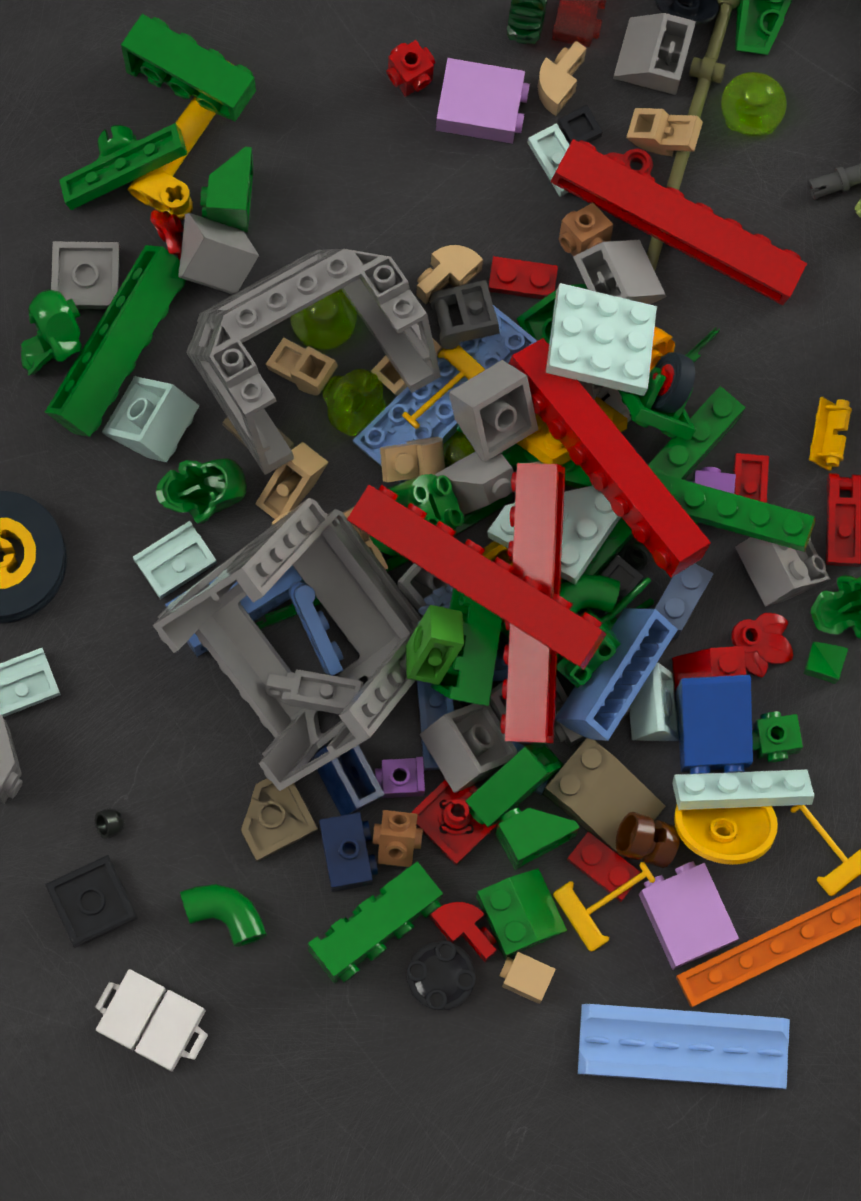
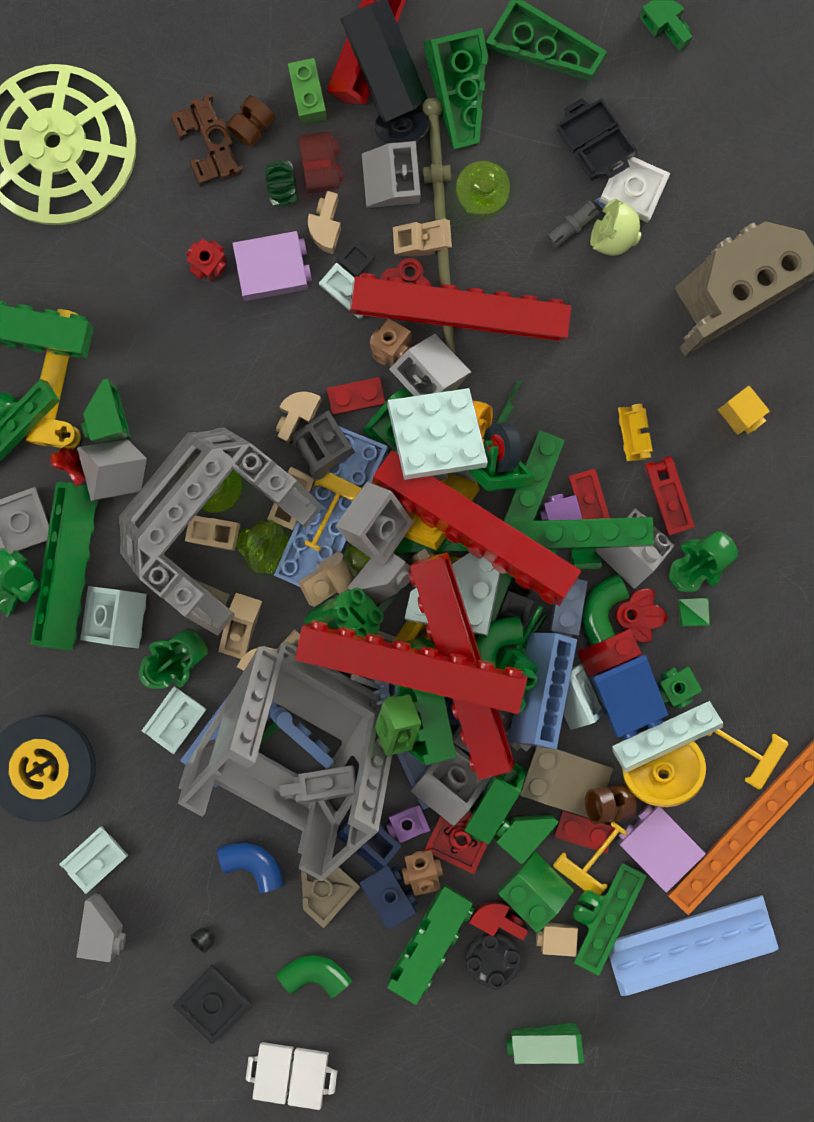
camera: 20 degrees left, 10 degrees up
(207, 754) = (253, 859): none -> blue cylinder
(466, 1093) = (546, 1045): none -> slope
(593, 971) = (606, 917): none -> green plate
(716, 611) = (597, 608): none -> green cylinder
(720, 557) = (585, 559): none -> green slope

